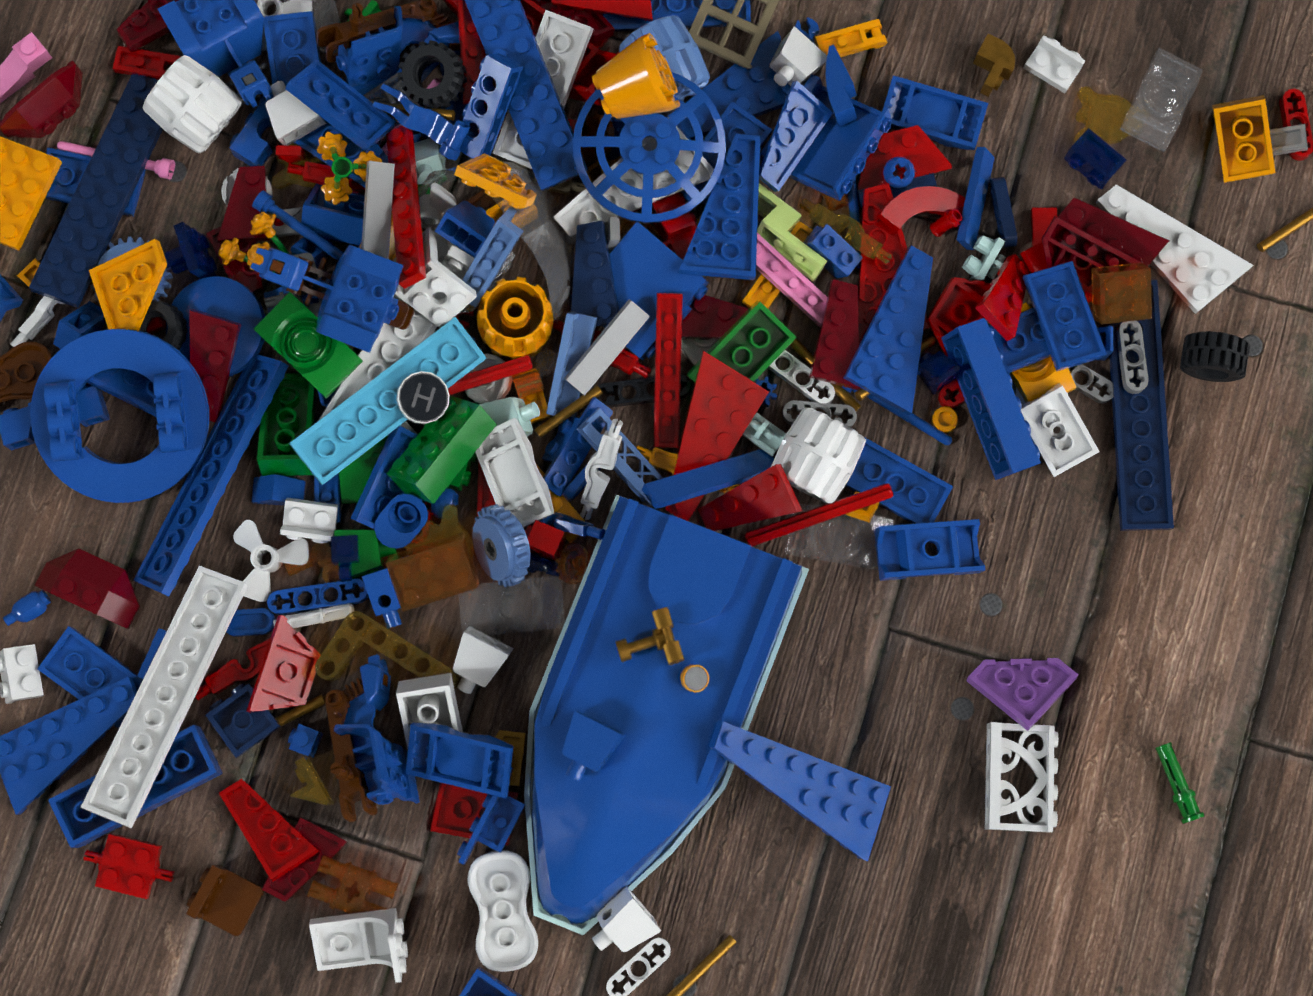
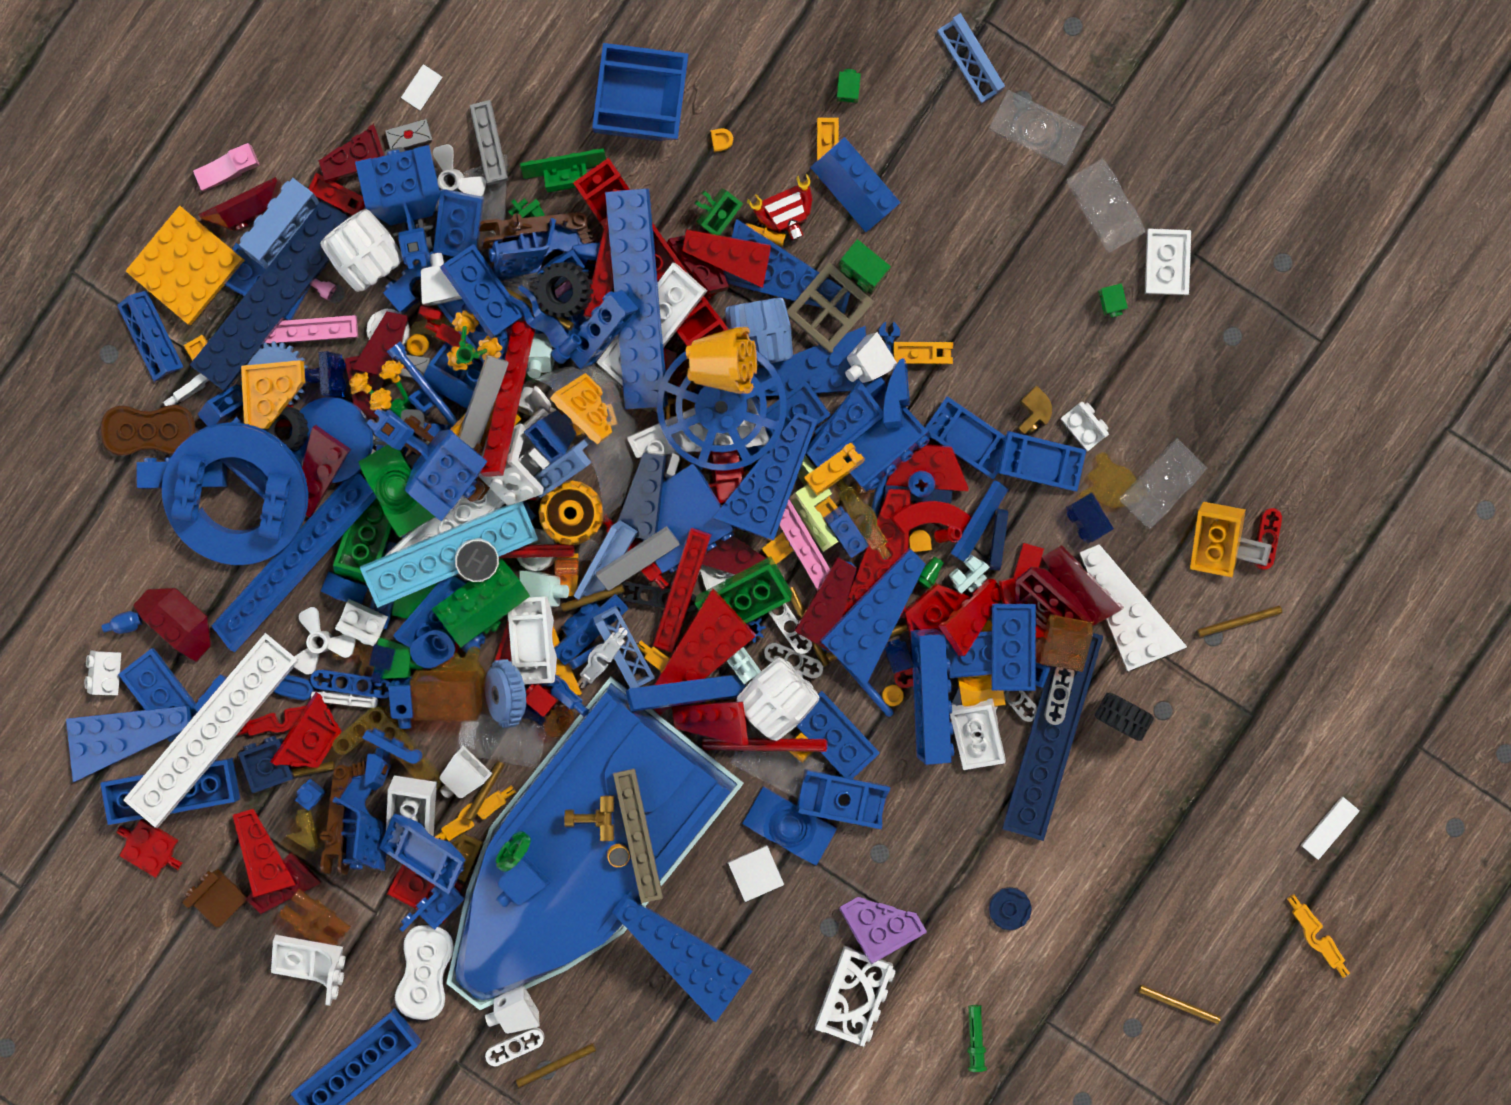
camera: 20 degrees right, 10 degrees up
(89, 105) = (278, 223): none -> medium blue brick
(163, 214) = (315, 329): none -> bright pink plate
(285, 196) = (417, 344): none -> light orange tile
(389, 646) = (393, 746): none -> blue plate
(510, 672) = (485, 791): none -> pearl gold bar
(514, 694) = (463, 824): none -> light orange piece
(568, 712) = (513, 851): none -> green tile
(711, 645) = (638, 835): none -> dark tan plate
(796, 185) = (834, 469): none -> light orange plate
(856, 670) = (756, 873): none -> white tile
(877, 604) = (781, 823): none -> blue slope
(918, 238) = (920, 541): none -> light orange tile
(940, 271) = (930, 573): none -> green cone
(1022, 113) = (1042, 461): none -> blue slope
(1162, 620) = (1010, 908): none -> dark blue tile

